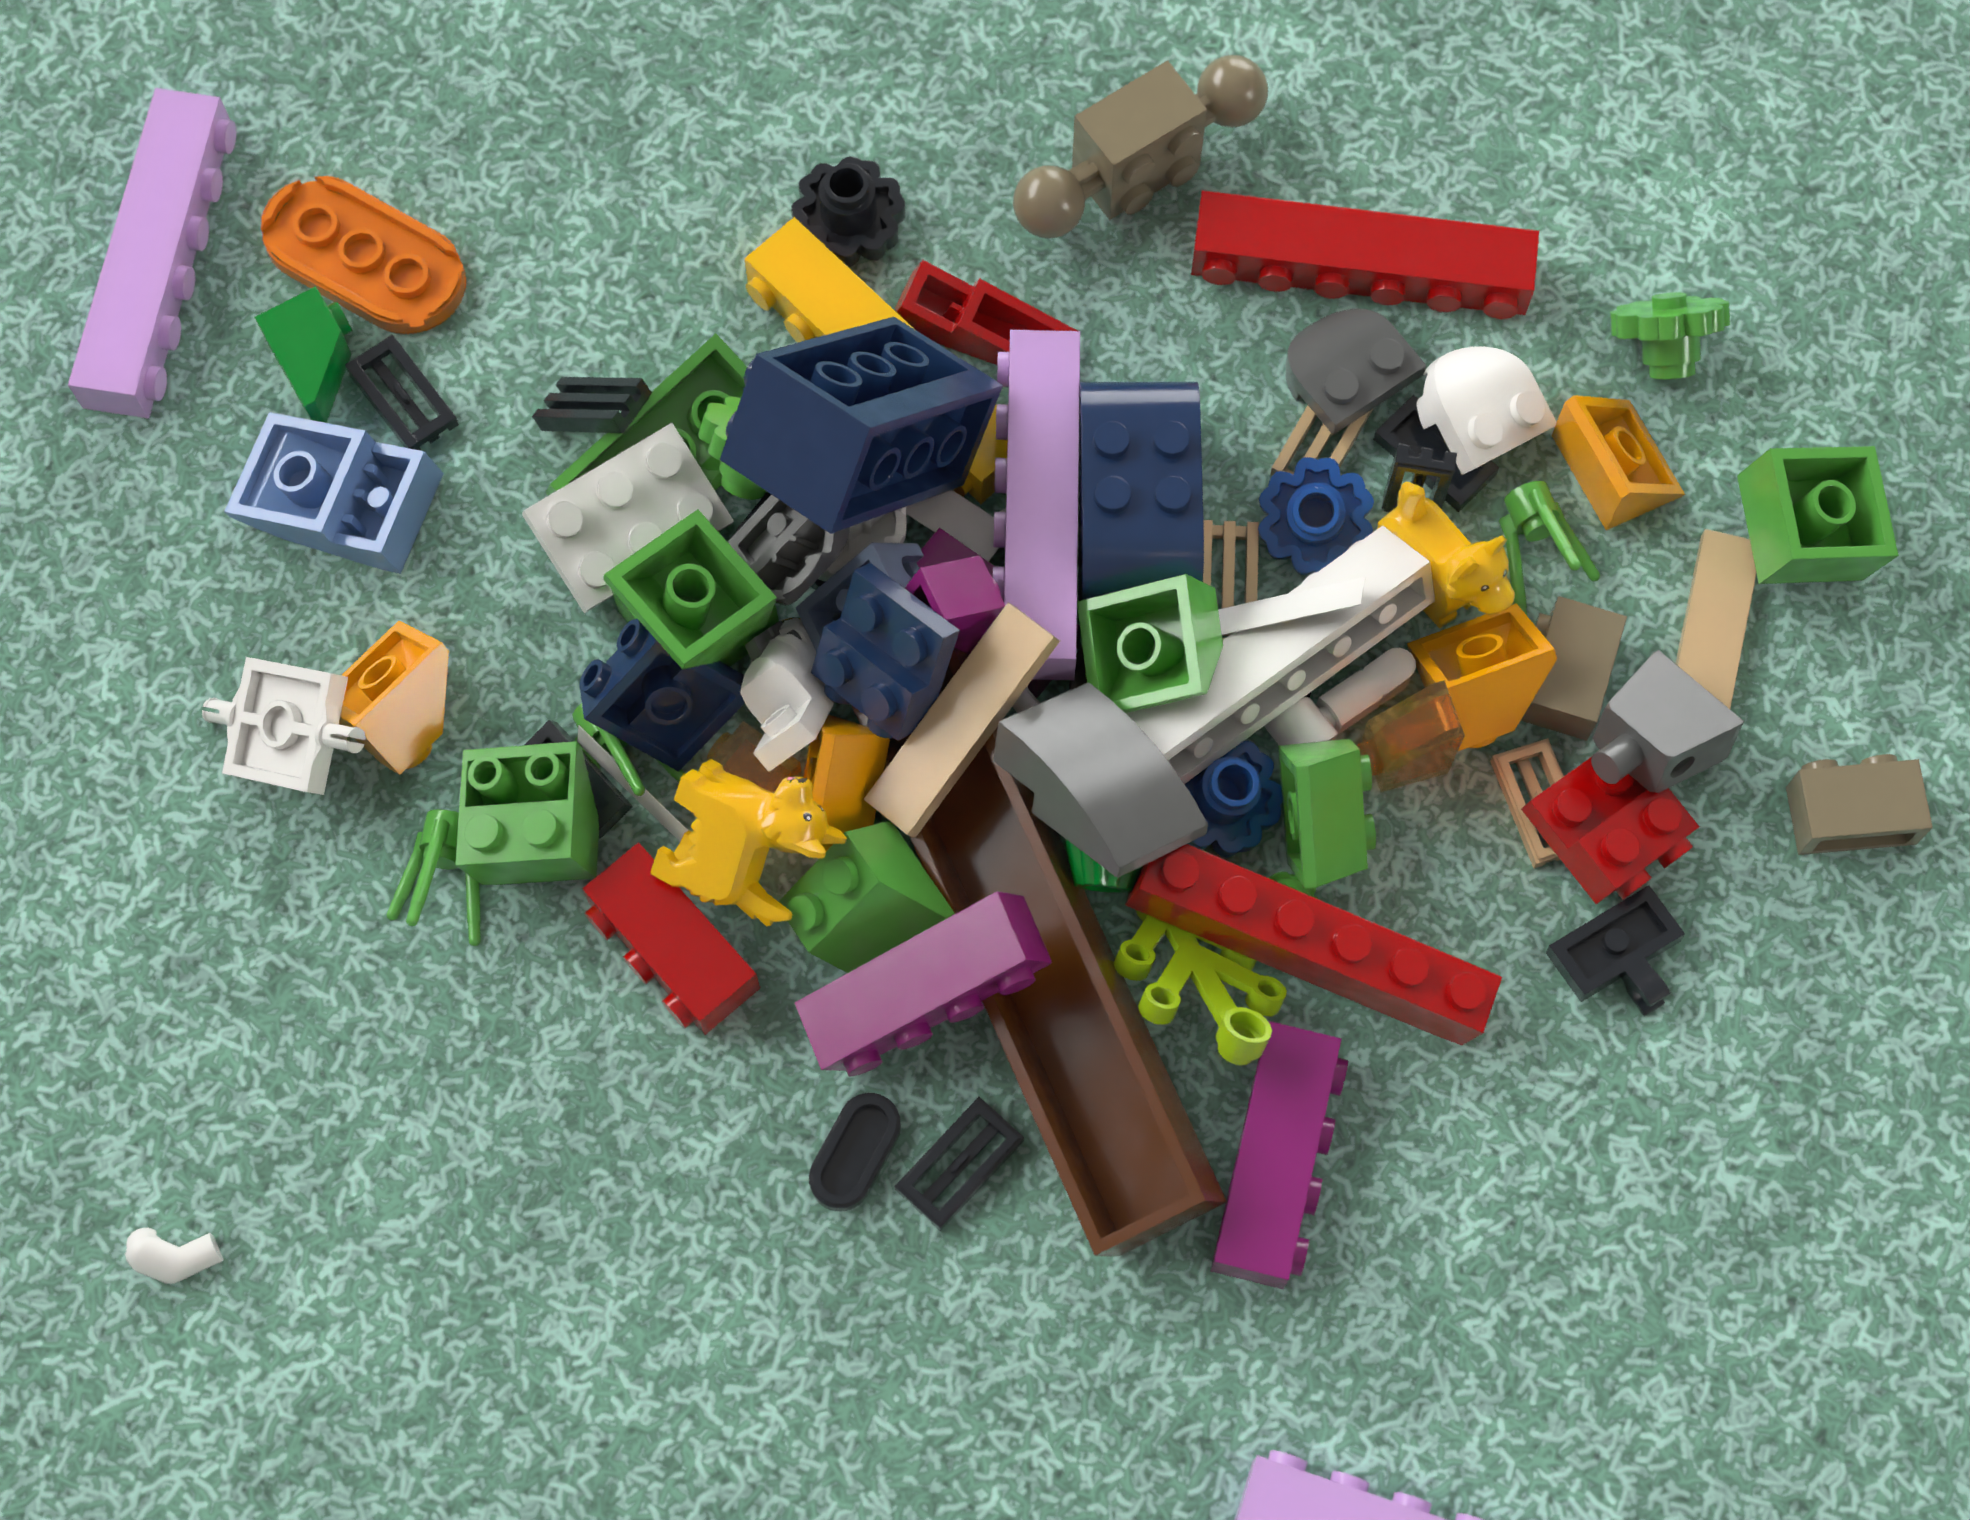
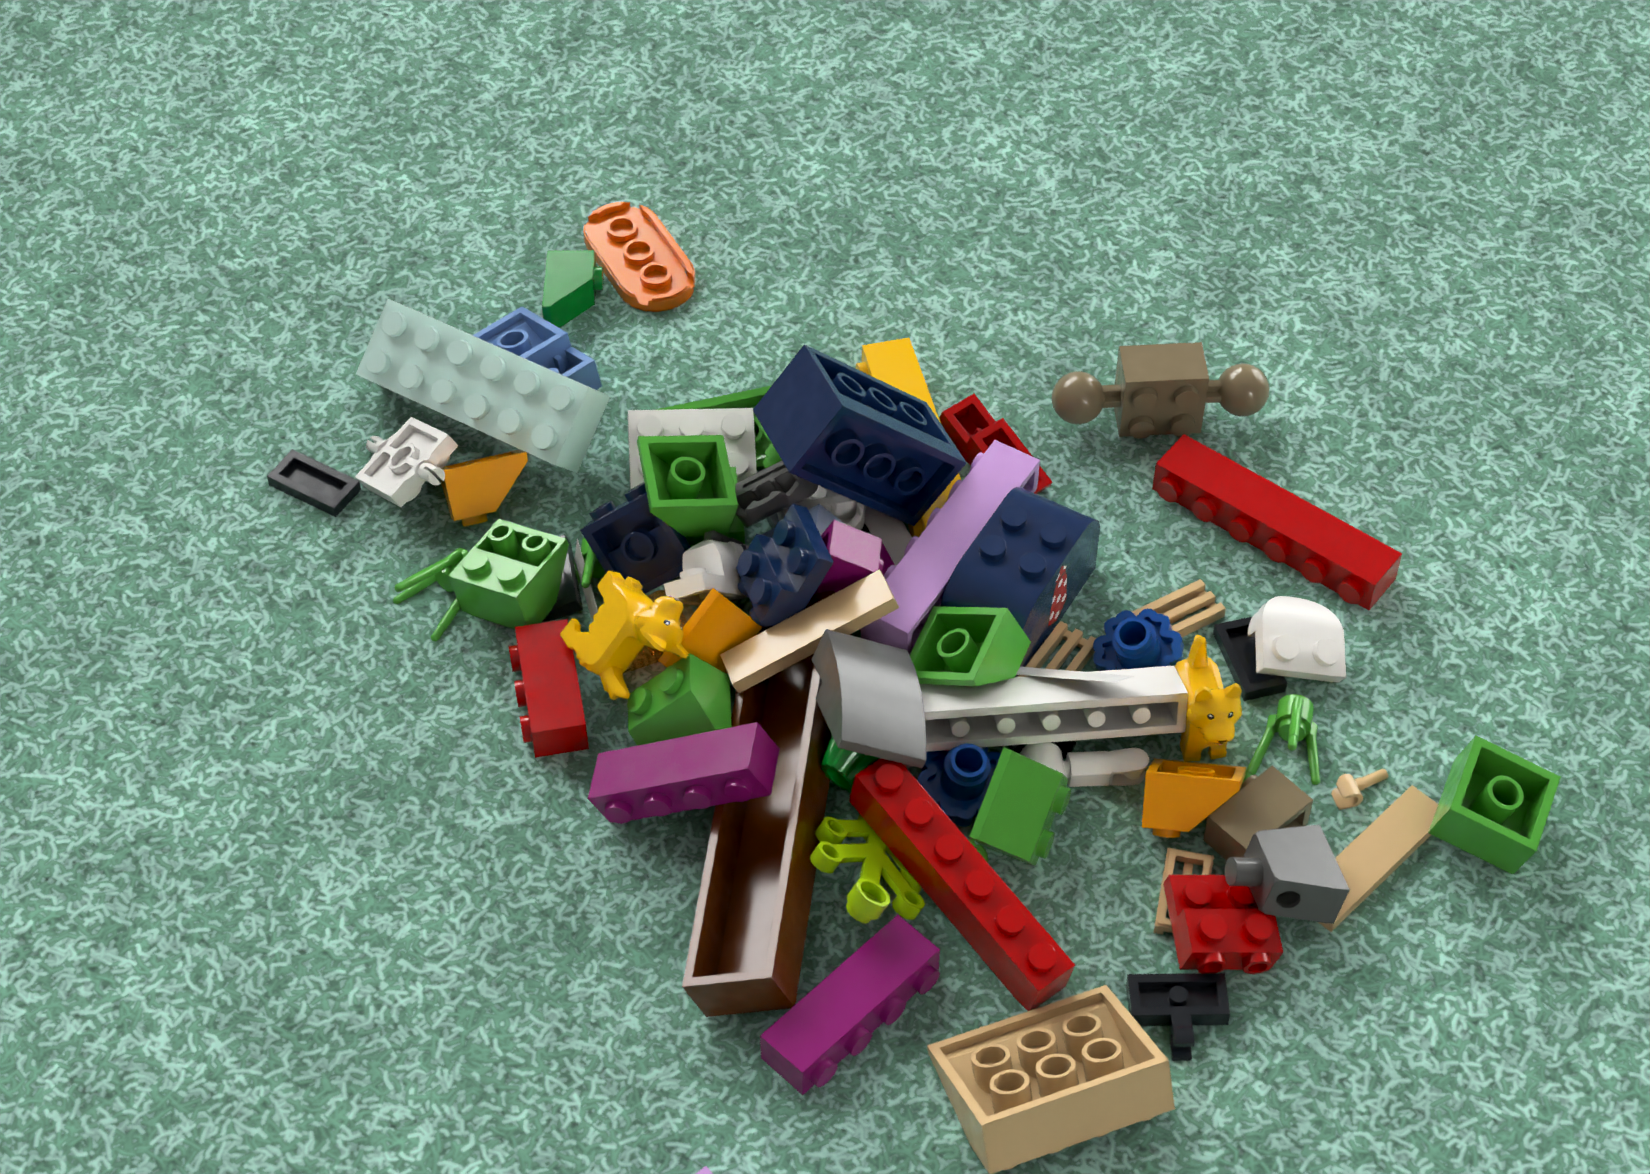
camera: 30 degrees right, 20 degrees down
(152, 254) = (515, 201): lavender brick -> none
(168, 1262) = (125, 713): white arm -> none
(173, 808) = (314, 483): none -> black tile
(311, 569) = (483, 386): none -> light aqua brick
(427, 430) = (607, 359): black tile -> none
(593, 404) = (714, 383): black tile -> none
(851, 209) = (952, 355): black plant -> none
(854, 1152) = (579, 867): black tile -> none
(924, 1202) = (642, 914): black tile -> none
(1349, 365) = (1221, 580): dark grey slope -> none
(1413, 738) = (1111, 803): clear orange slope -> none
(1420, 467) = (1228, 648): black tile -> none
(1540, 1117) = (1052, 1078): none -> tan slope
(1614, 458) = (1374, 713): light orange slope -> none
(1639, 572) = (1348, 789): none -> tan hand
(1670, 330) = (1460, 653): bright green plant -> none
(1858, 805) = (1412, 1001): dark tan brick -> none

